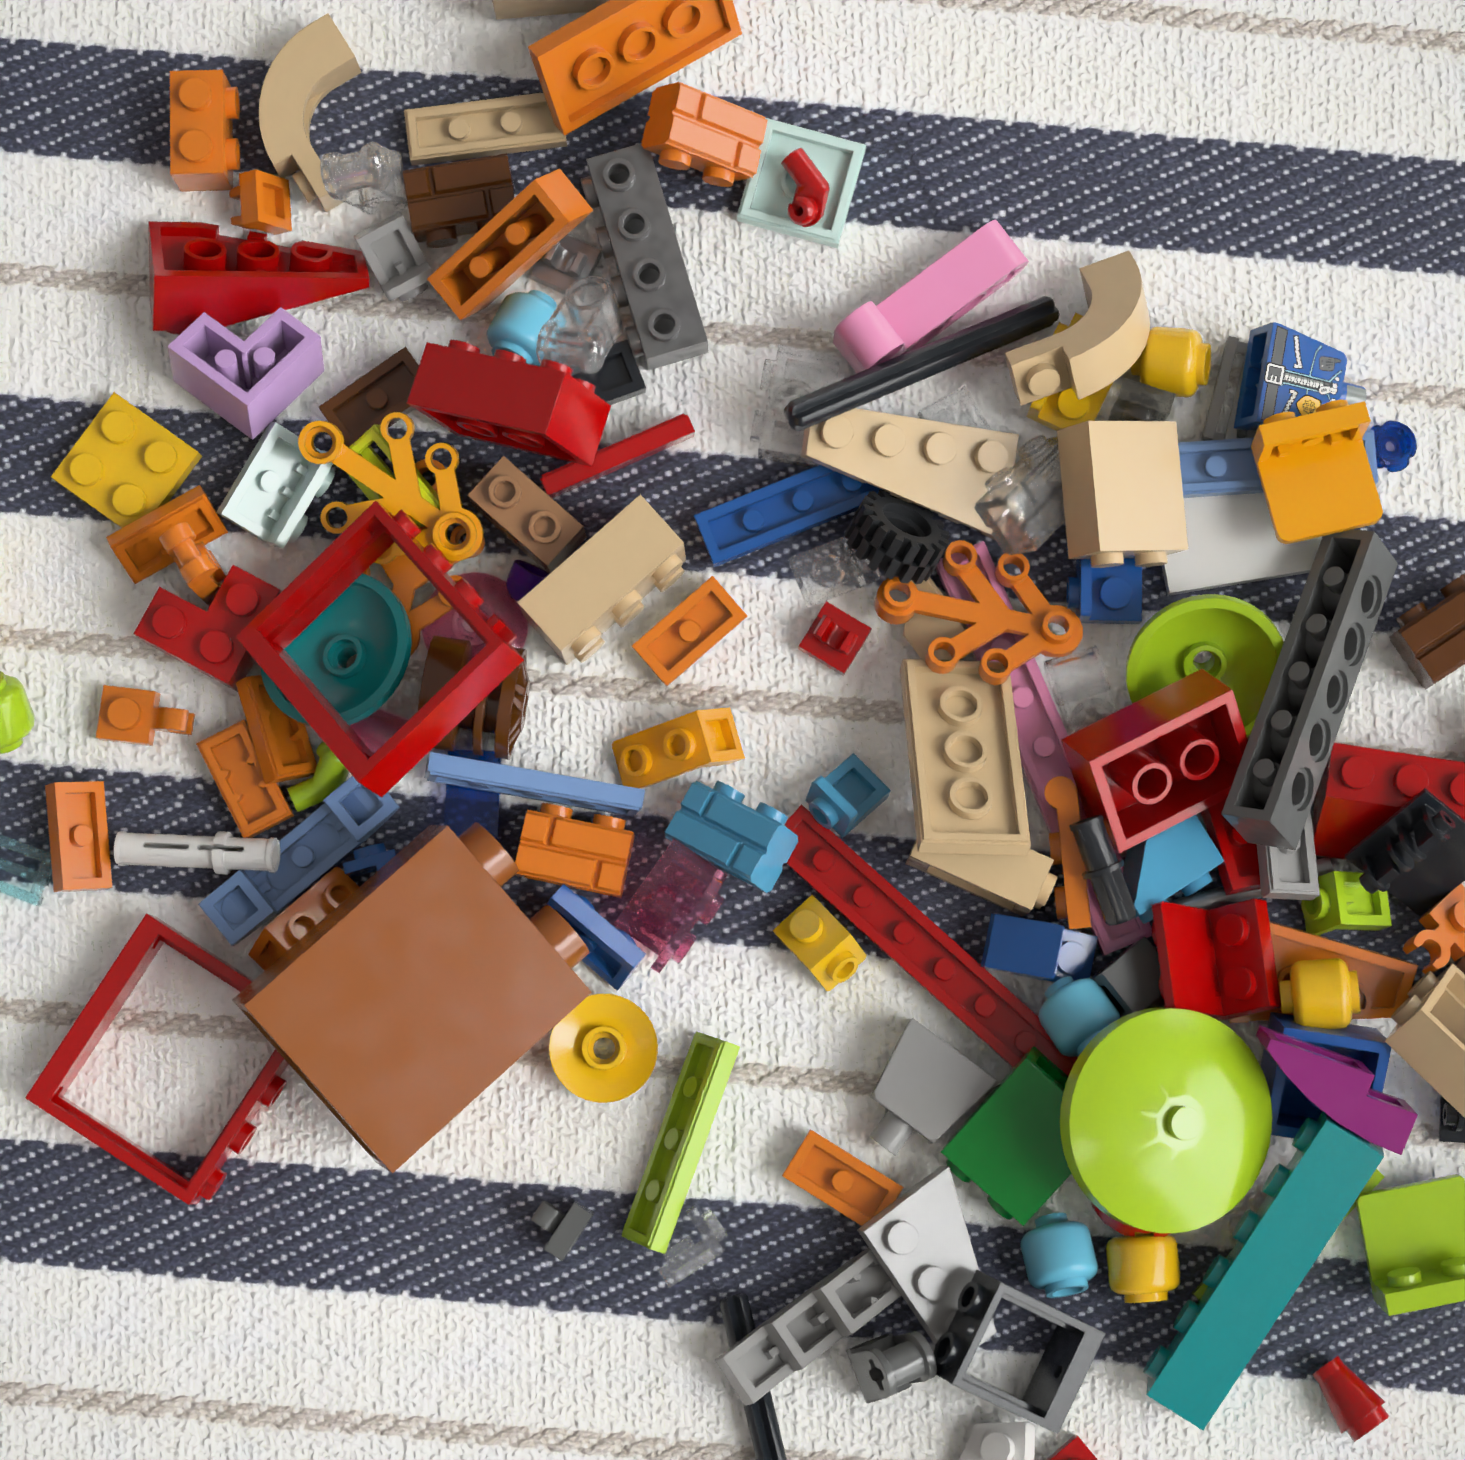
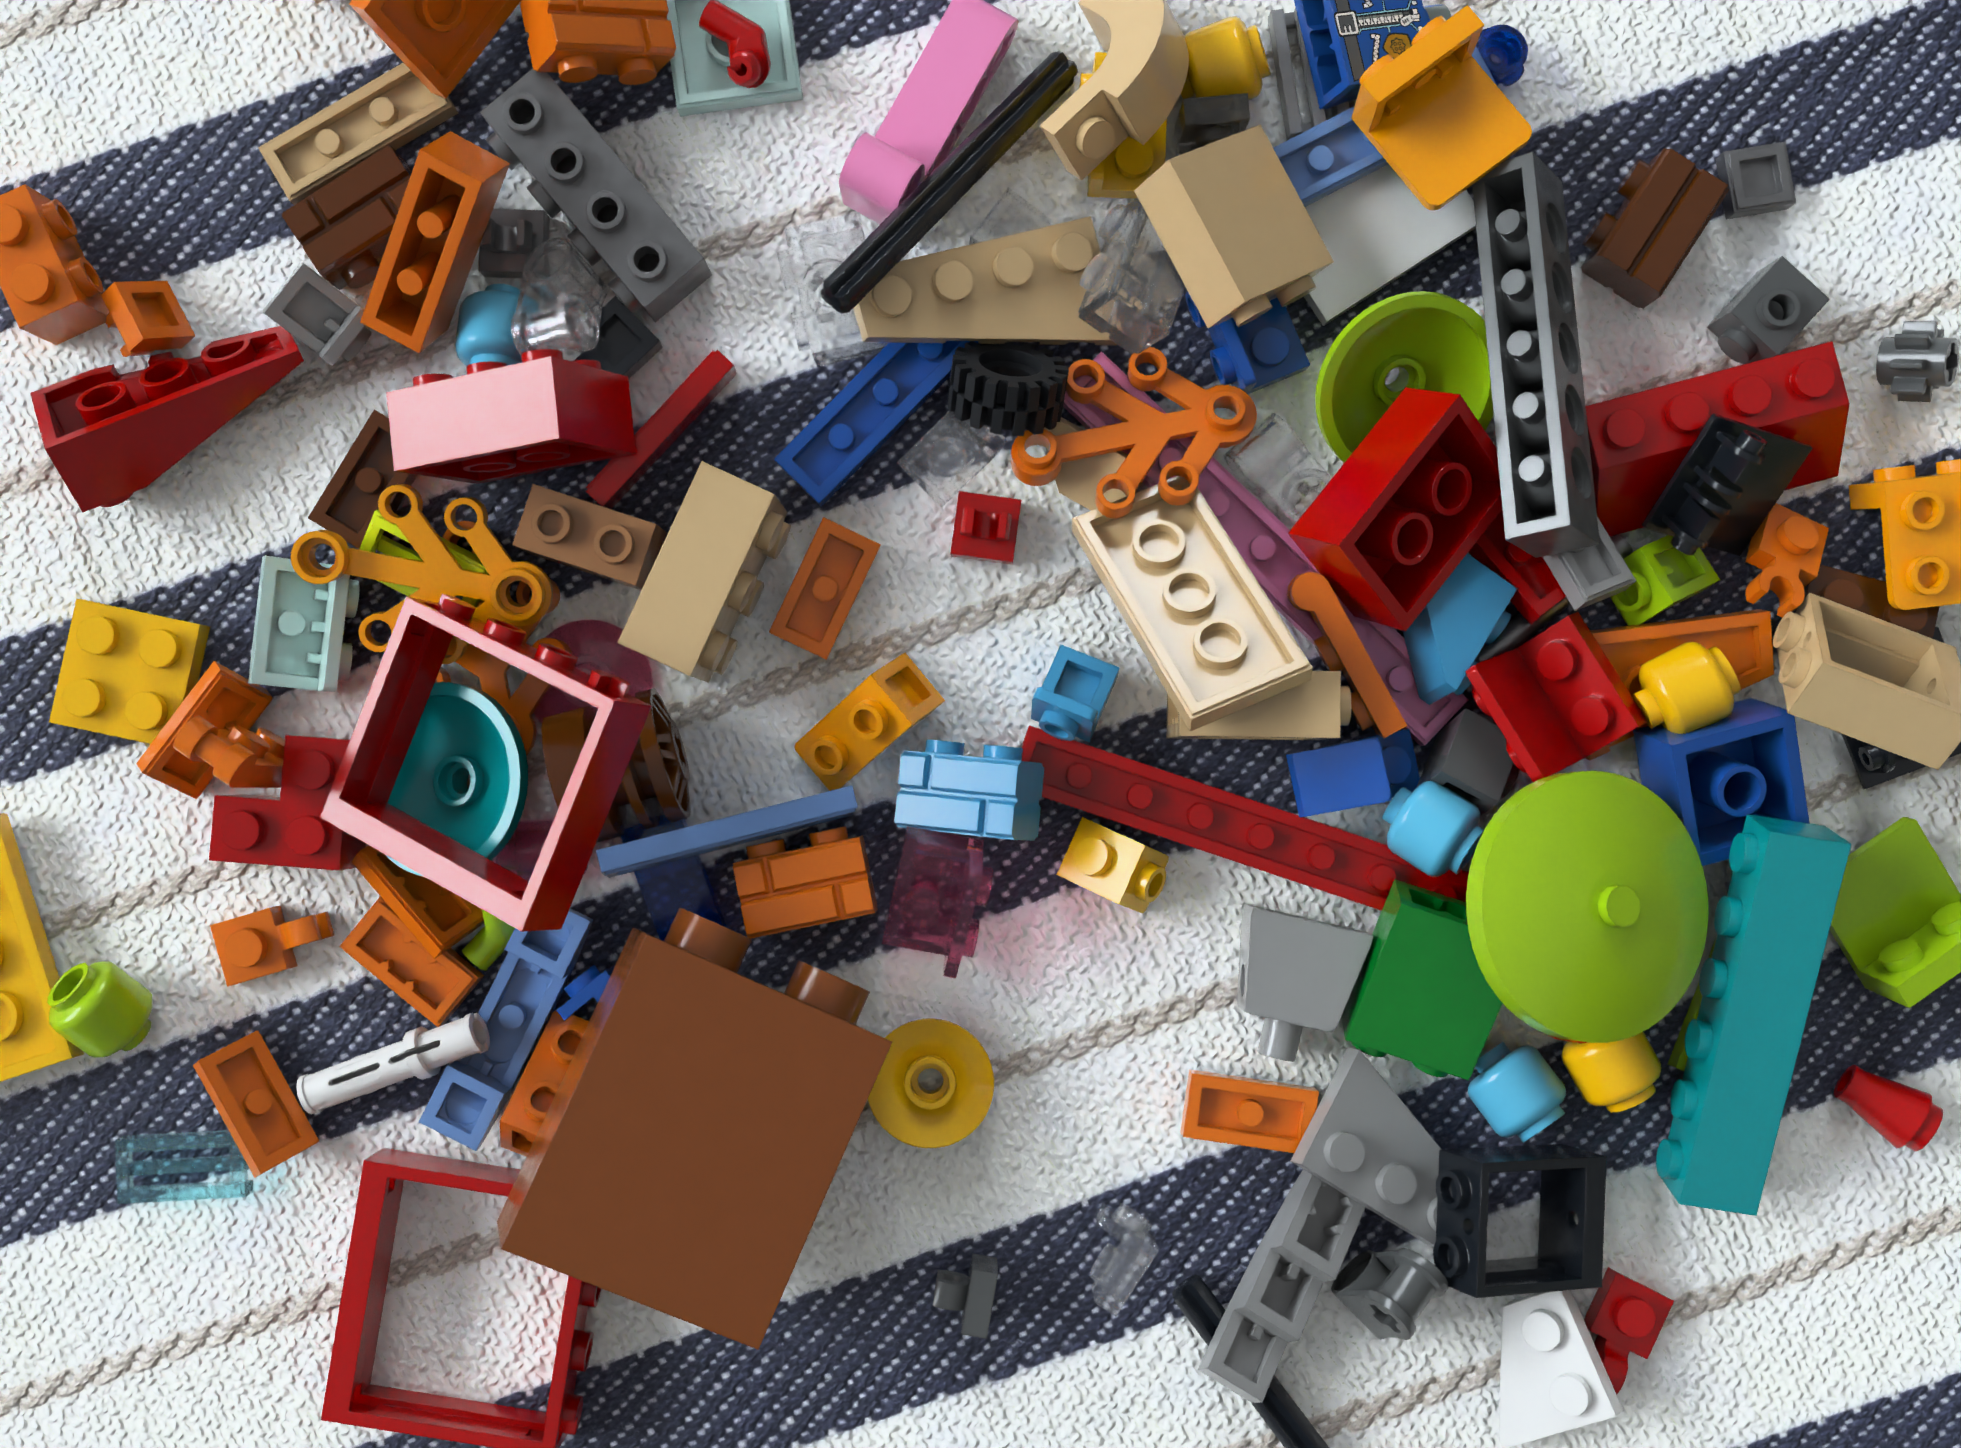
camera: 30 degrees left, 5 degrees up
(248, 378) = (212, 519): lavender brick -> none
(296, 82) = (122, 178): tan arch -> none
(366, 178) = (243, 239): clear piece -> none
(523, 578) = (616, 608): dark purple hinge -> none
(611, 950) = (888, 973): blue plate -> none
(680, 1142) = (1057, 1148): lime tile -> none
(1103, 870) = (1396, 657): black axle -> none
(1342, 1090) = (1768, 787): magenta slope -> none

